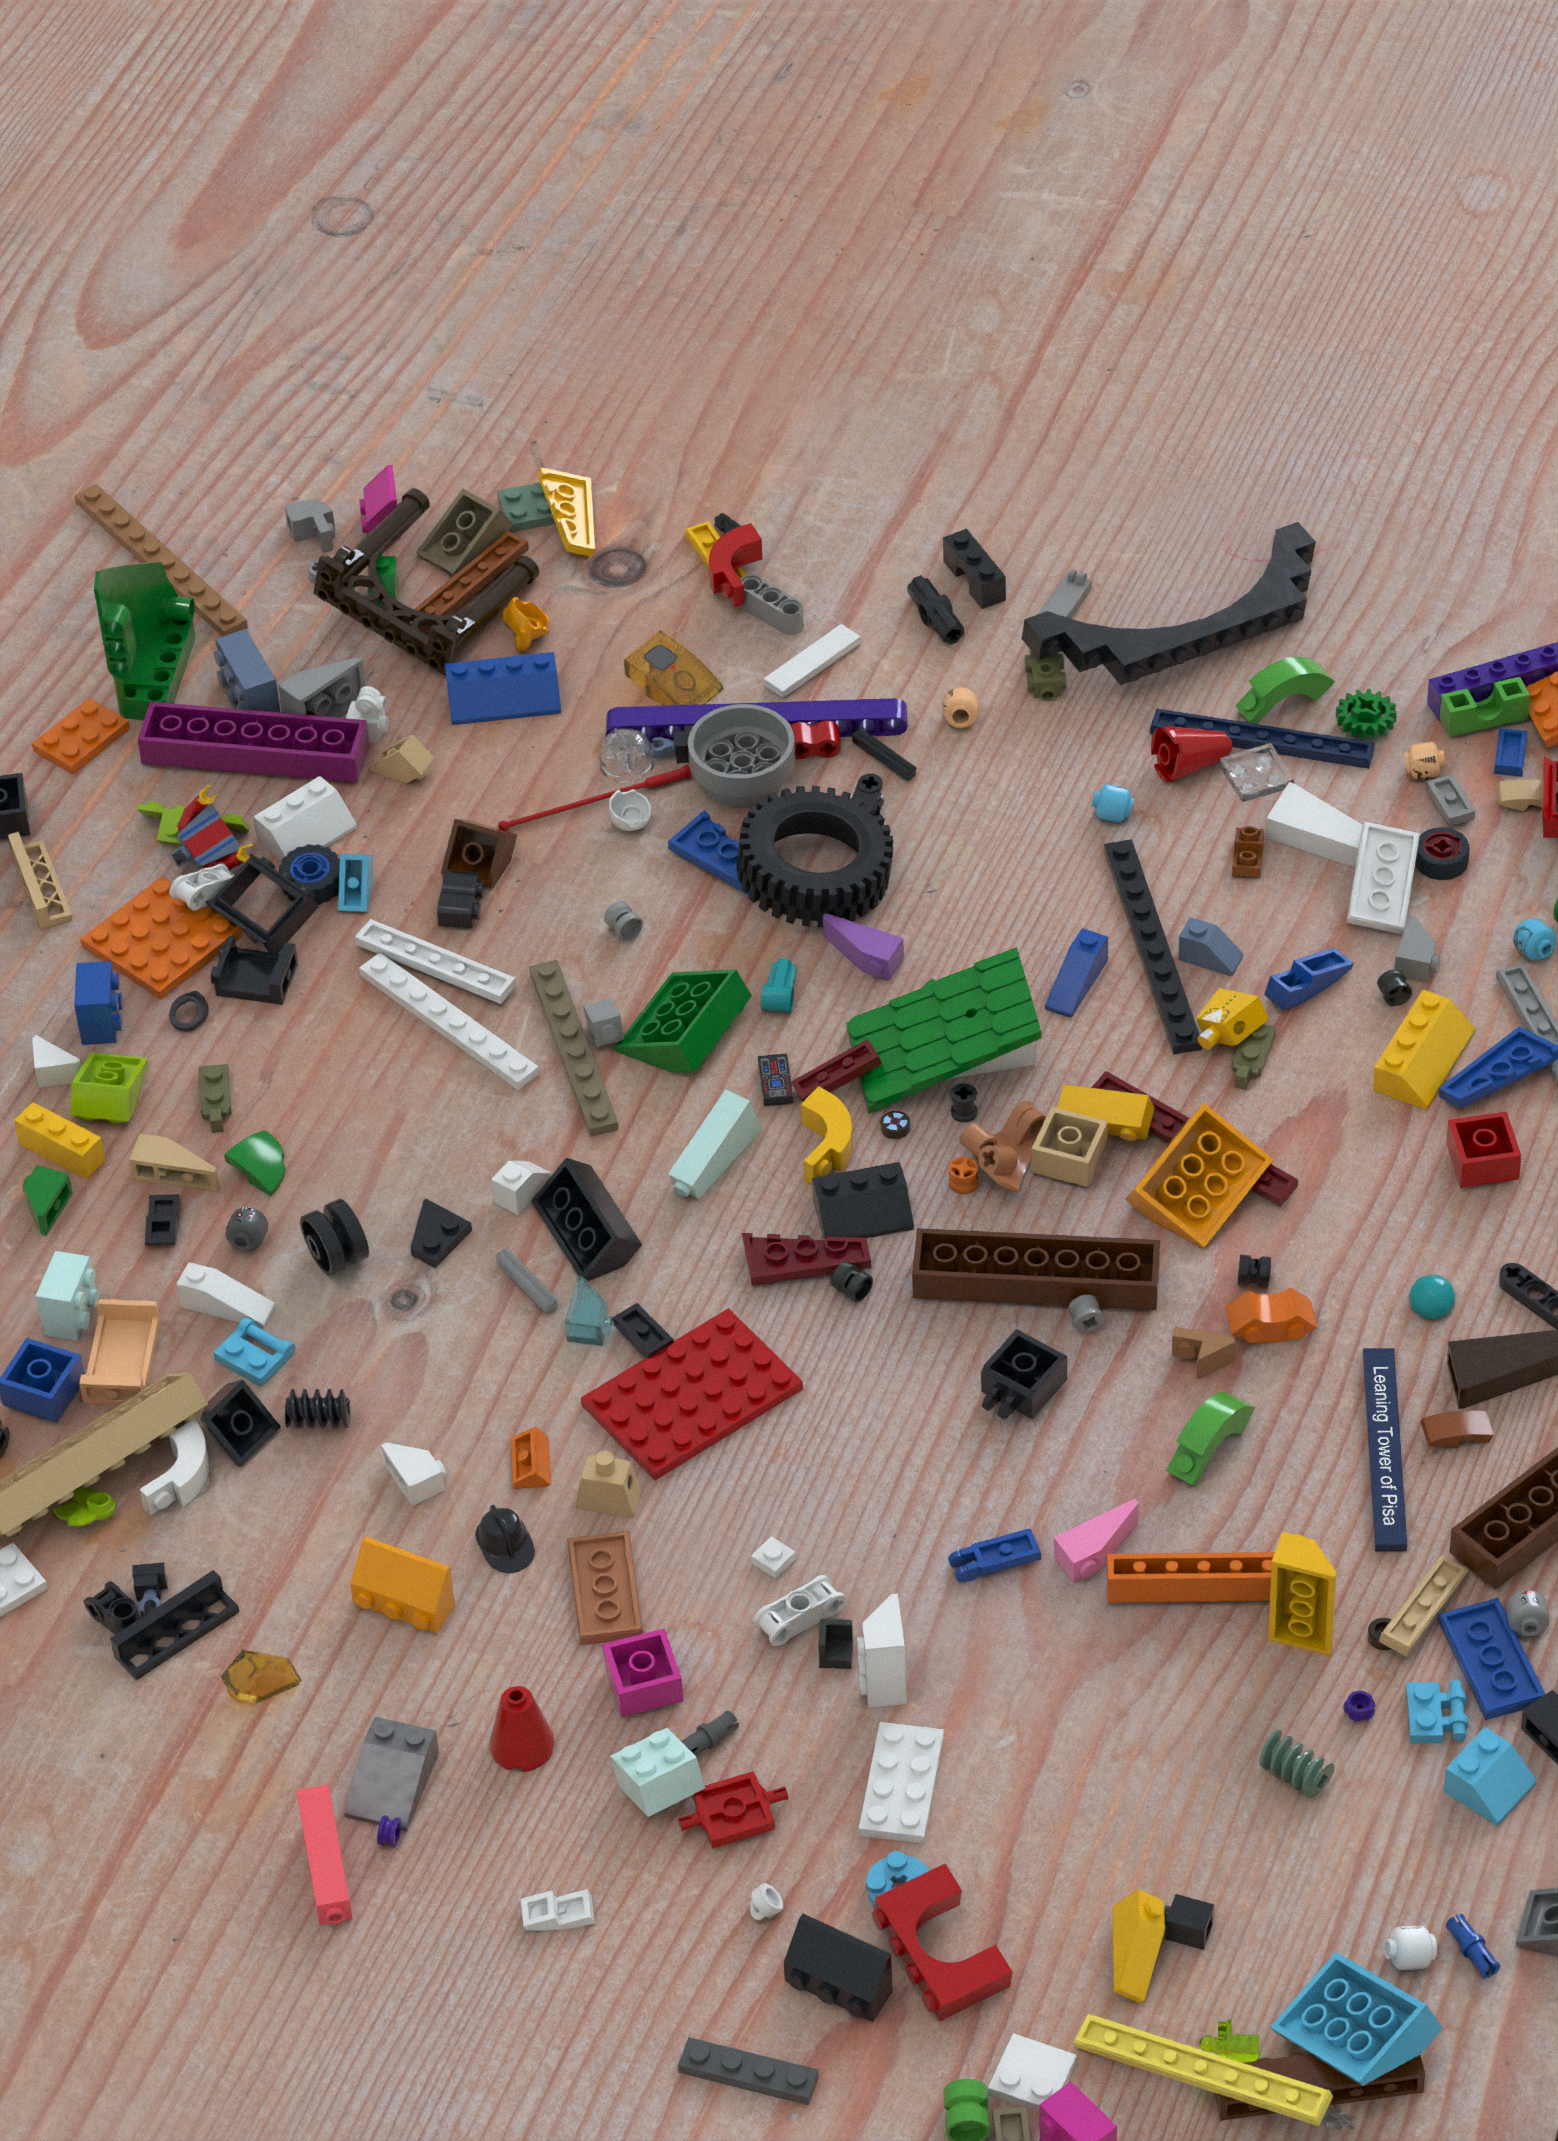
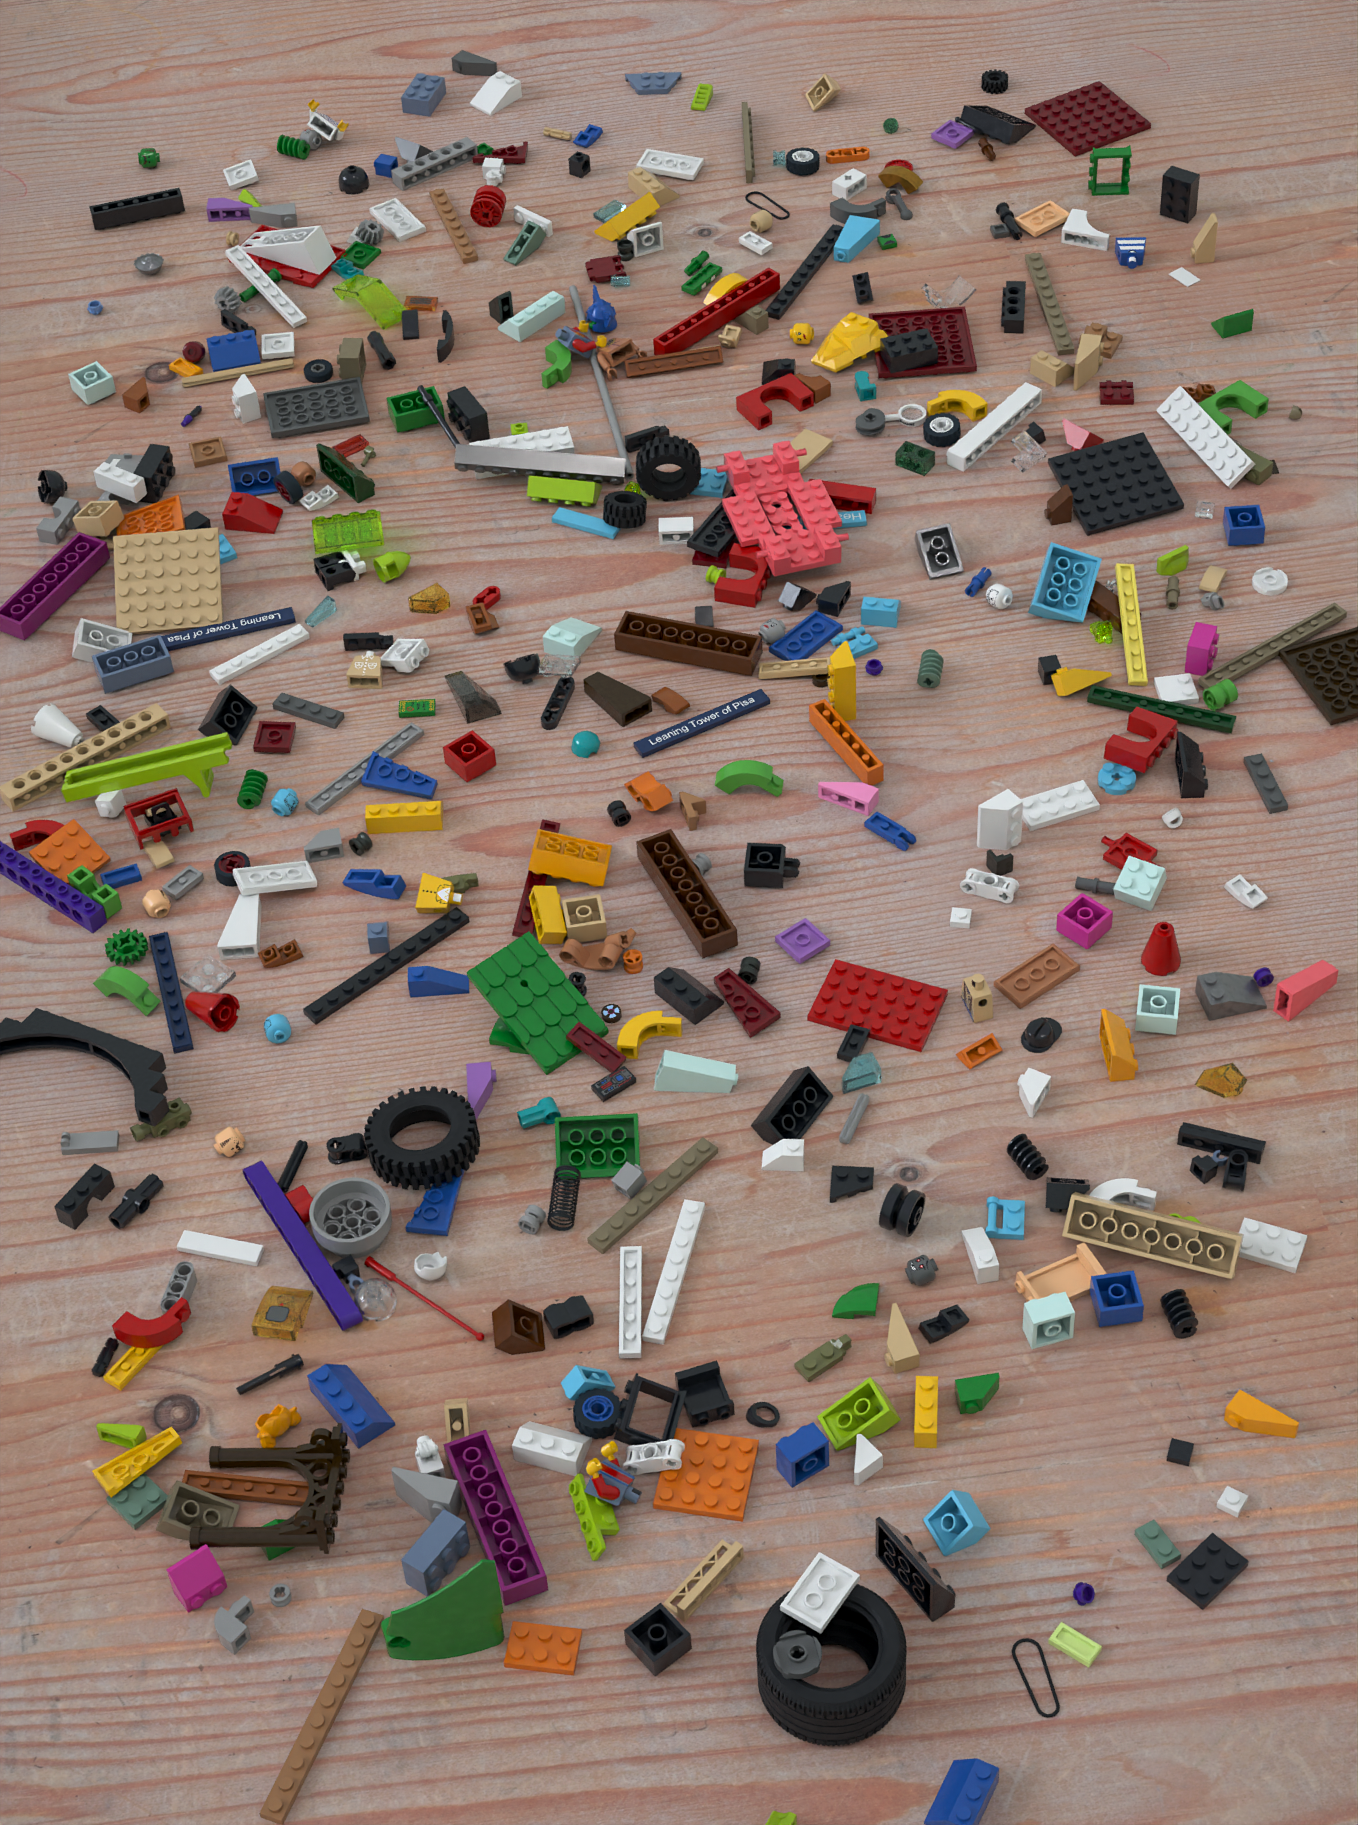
camera: 120 degrees left, 0 degrees up
(425, 1667) = (1157, 1009): none -> light aqua brick
(598, 667) = (290, 1364): none -> black pin
(604, 939) = (567, 1183): none -> black piece
(615, 511) = (122, 1434): none -> lime slope
(862, 1362) = (802, 940): none -> medium lavender plate
(998, 2023) = (1176, 711): none -> dark green plate

